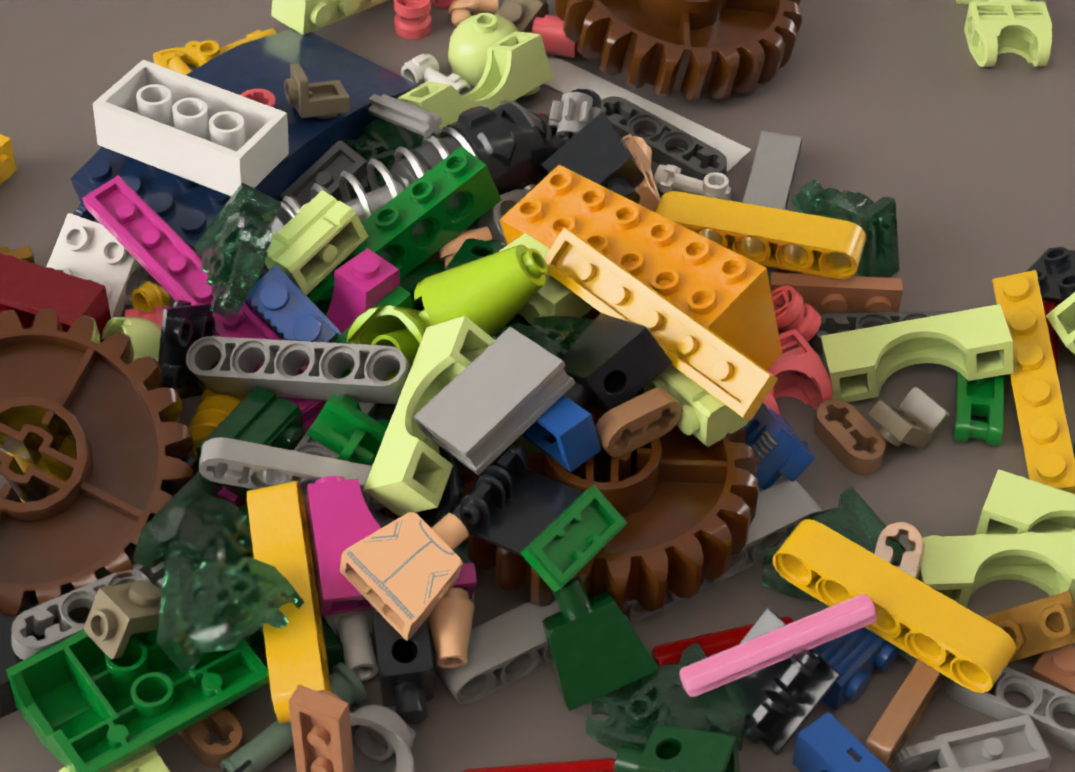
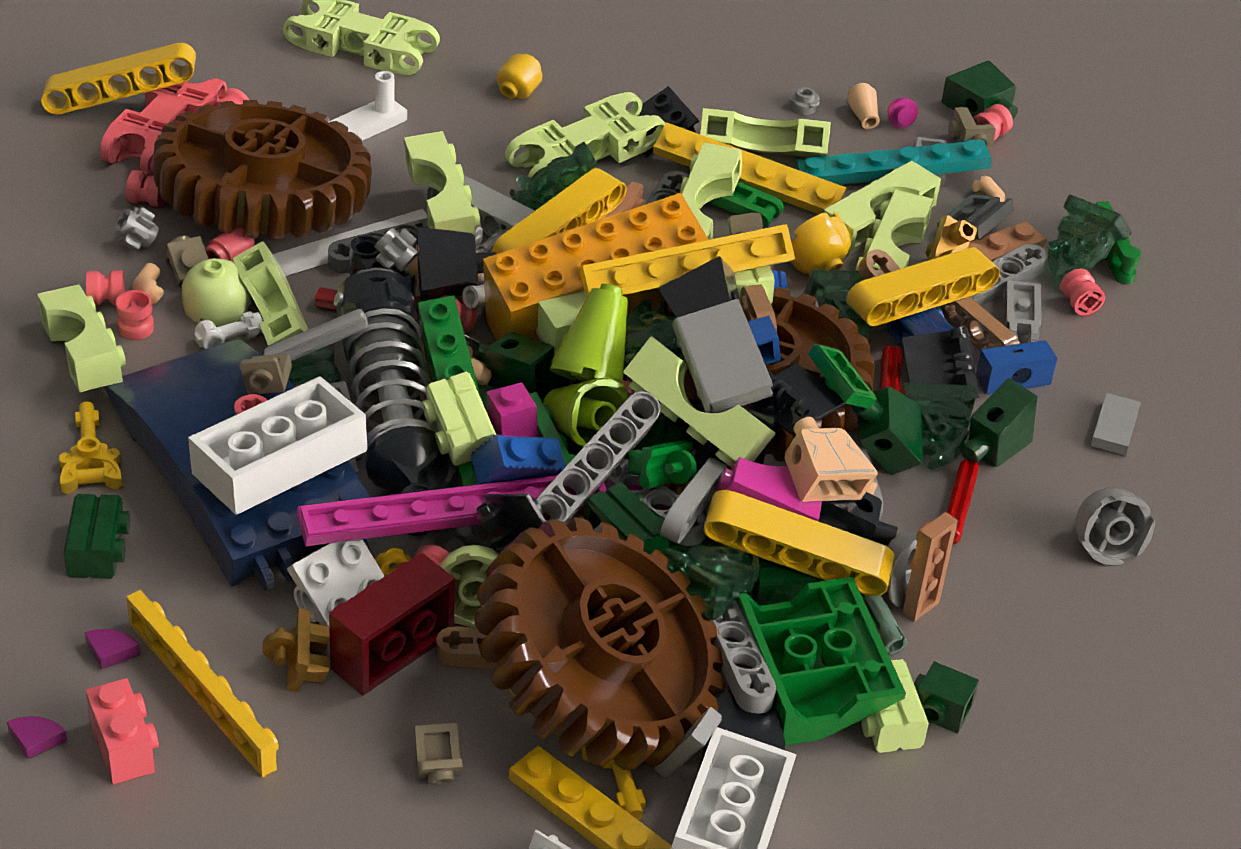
camera: 70 degrees left, 5 degrees down
(73, 92) = (95, 535): none -> dark green brick
(122, 612) = (781, 627): dark tan bracket -> none
(218, 606) = (802, 570): clear green piece -> none
(237, 247) = (455, 451): clear green piece -> none
(704, 151) = (433, 164): none -> yellowish green arch
(778, 645) = (938, 341): bright pink axle -> none
(854, 58) = (376, 115): none -> white piece
(929, 490) = (820, 244): none -> yellow cylinder
(970, 226) = (605, 129): none -> yellowish green piece
(1037, 137) = (519, 76): none -> yellow head

